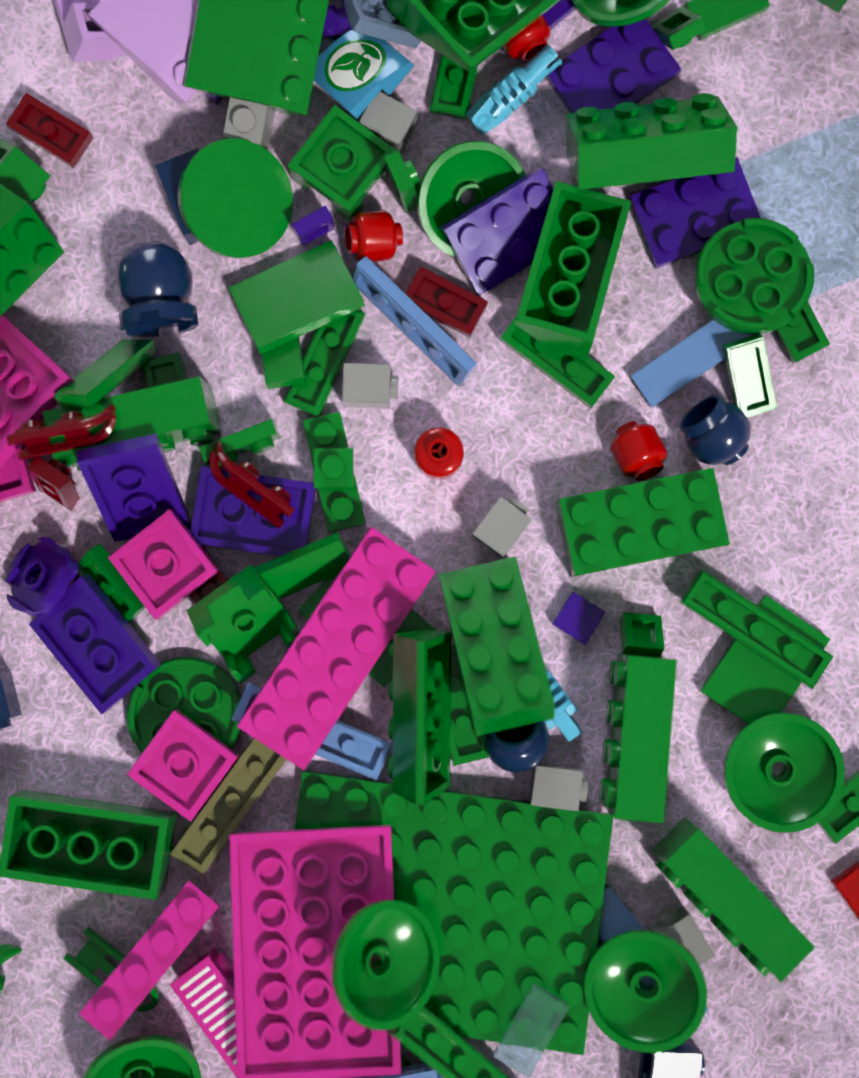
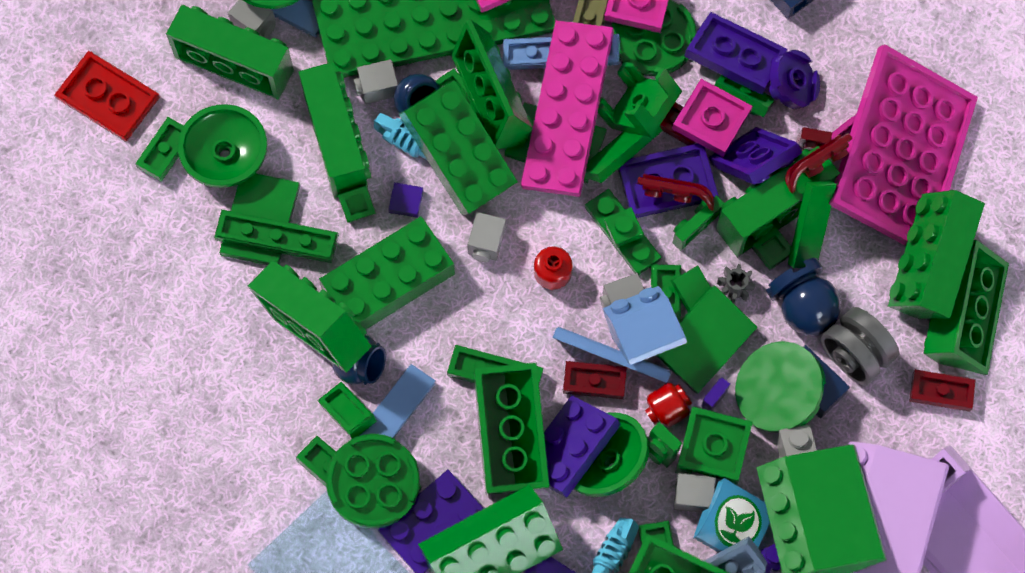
camera: 155 degrees right, 15 degrees down
(115, 208) = (860, 345): none -> flat silver wheel
(219, 345) = (736, 275): none -> dark grey gear
(364, 324) = (644, 325): none -> medium blue slope
(638, 450) = (409, 327): red head -> none
(764, 490) = (311, 315): none -> green brick

